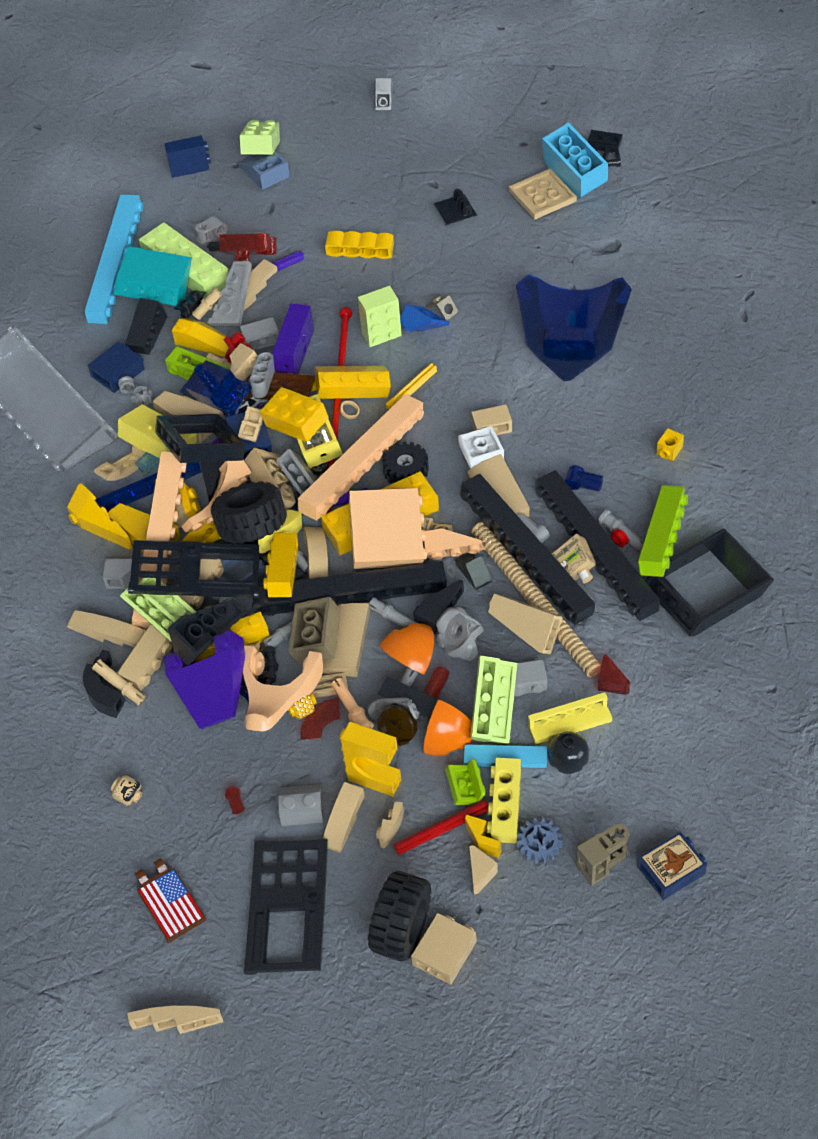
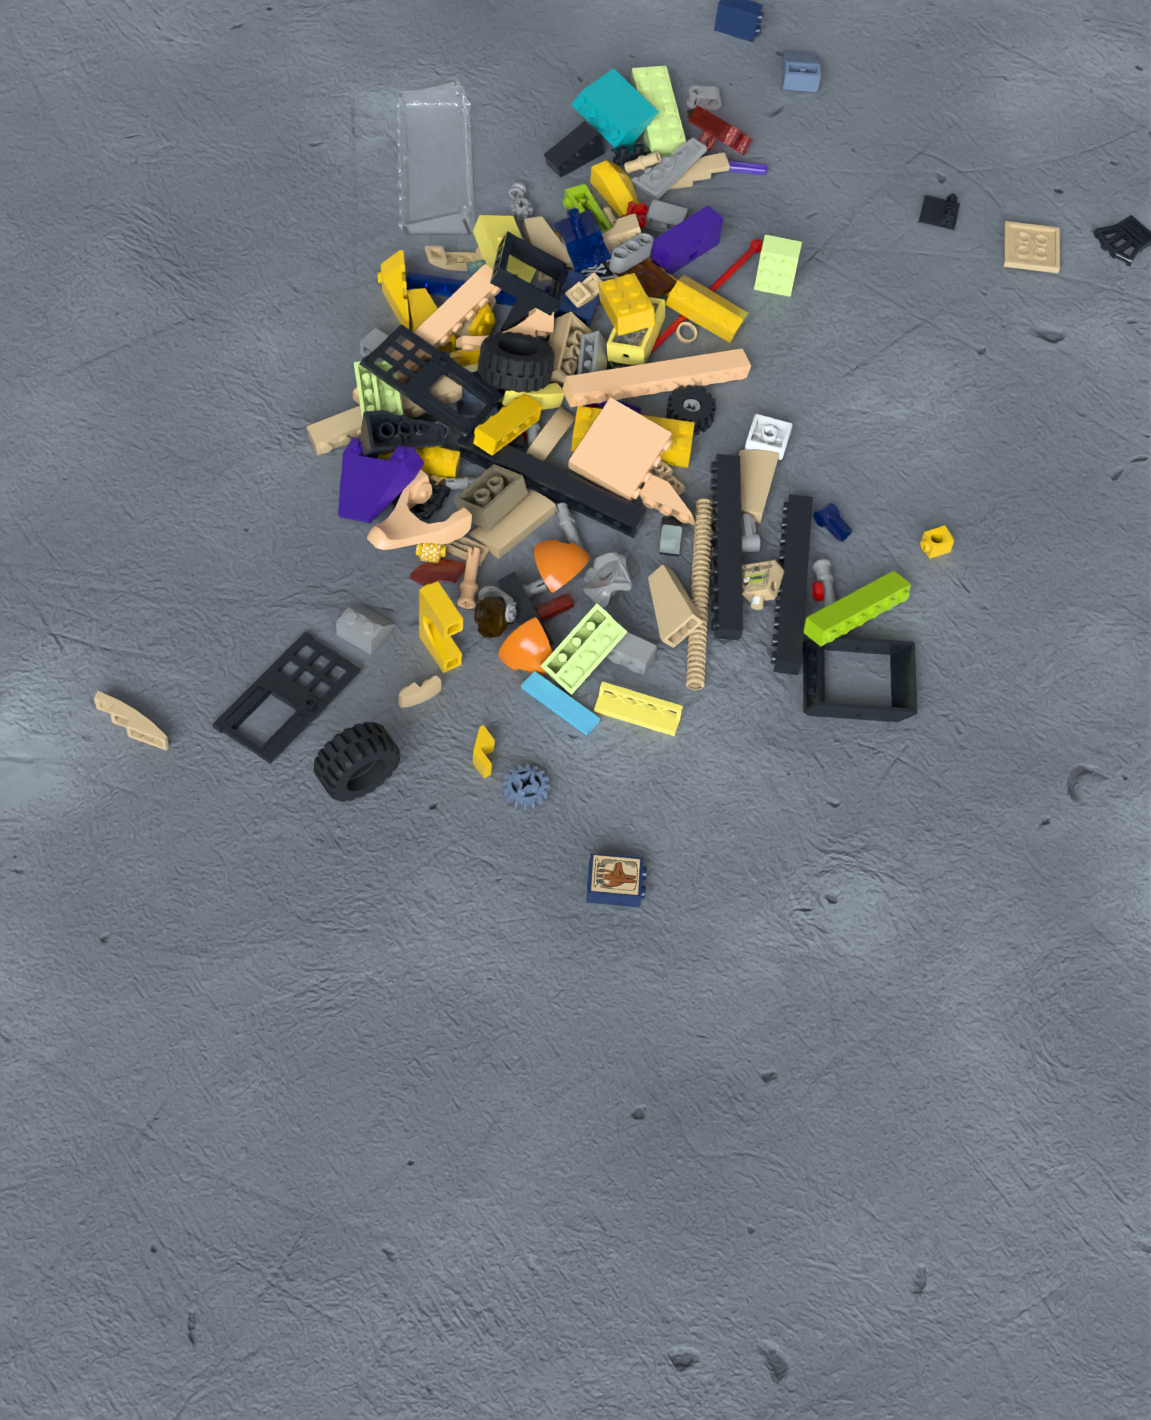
camera: 25 degrees right, 5 degrees up
(101, 697) = (284, 423): black arch -> none
(105, 628) = (328, 384): tan slope -> none
(115, 364) = (522, 167): dark blue brick -> none
(118, 682) = (305, 443): tan pin -> none
(119, 238) = (620, 57): medium azure brick -> none
(126, 790) = (239, 524): tan head -> none
(169, 902) = (201, 632): tile -> none
(234, 799) = (317, 585): clear red pin -> none
(260, 137) = (816, 39): yellowish green brick -> none
(343, 816) = (388, 659): tan slope -> none
(359, 244) = (821, 190): yellow brick -> none
(384, 94) = (968, 65): light grey slope -> none
(413, 385) = (762, 346): yellow axle -> none
(420, 319) = (817, 291): blue slope -> none
(435, 605) = (623, 543): black slope -> none
(440, 302) = (846, 287): bracket -> none
(440, 828) = (457, 722): red axle -> none
(444, 948) = (377, 814): tan brick -> none
(465, 783) = (506, 701): lime bracket -> none
(482, 868) = (459, 776): tan slope -> none
(496, 416) = (804, 420): tan brick -> none
(509, 770) = (545, 711): light yellow brick -> none
(568, 752) = (613, 735): black cylinder -> none
(569, 326) = (945, 379): clear blue windscreen -> none
(574, 160) = (1081, 232): medium azure brick -> none
(595, 853) = (558, 828): dark tan brick -> none
(612, 679) = (701, 700): clear red slope -> none

